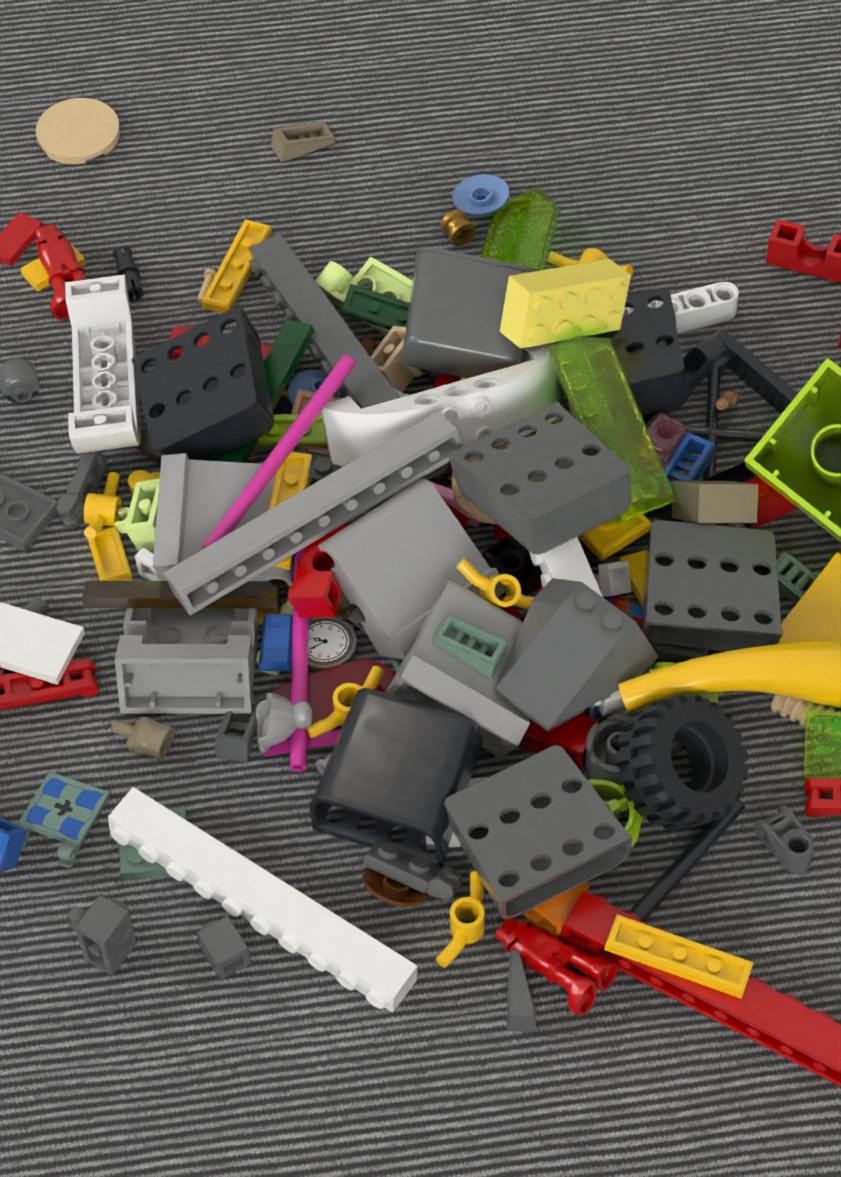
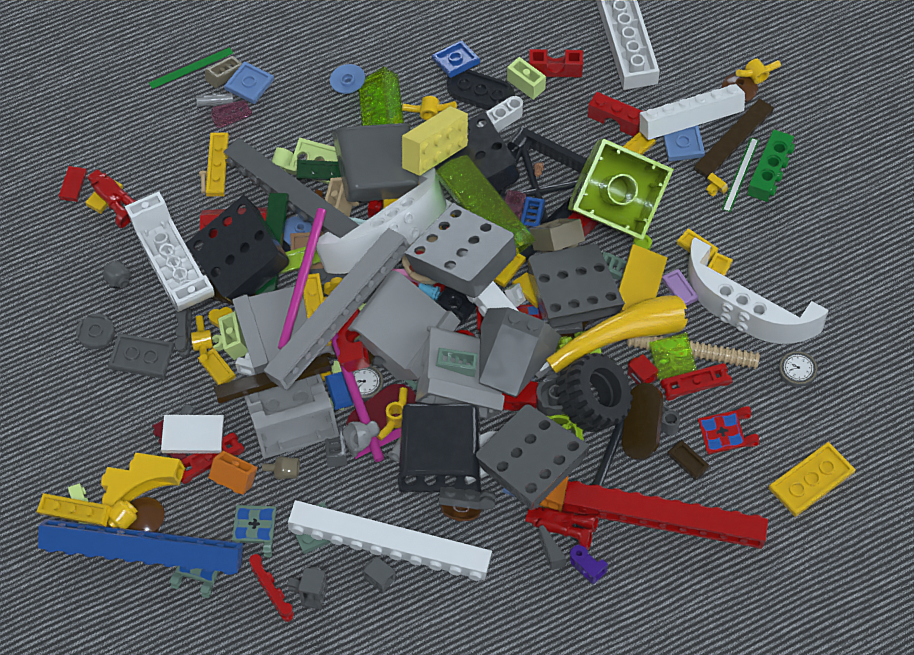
camera: 20 degrees left, 5 degrees up
(47, 928) = (275, 595): none -> red plate
(61, 718) = (232, 472): none -> orange brick
(77, 130) = (81, 101): tan tile -> none
(130, 270) = (152, 185): black pin -> none
(257, 125) = (192, 67): none -> green sticker
(271, 175) = (214, 100): none -> light grey pin
(277, 200) = (219, 115): none -> clear pink slope
(332, 164) = (249, 82): none -> medium blue plate
(458, 227) = (341, 103): pearl gold wheel -> none
(465, 932) = (506, 524): yellow piece -> none
(480, 534) = (432, 292): none -> medium azure bush
(487, 587) = (451, 322): yellow piece -> none
(569, 1041) = (587, 564): none -> dark purple leg
(660, 209) = (455, 58): none -> blue tile
(677, 260) = (478, 89): none -> black tile
(679, 956) = (631, 501): yellow tile -> none
(749, 835) = (643, 422): none -> dark brown tile
(758, 262) = (526, 78): none -> yellowish green brick
(780, 756) = (642, 370): none -> red brick
(807, 922) = (688, 460): none -> dark brown tile

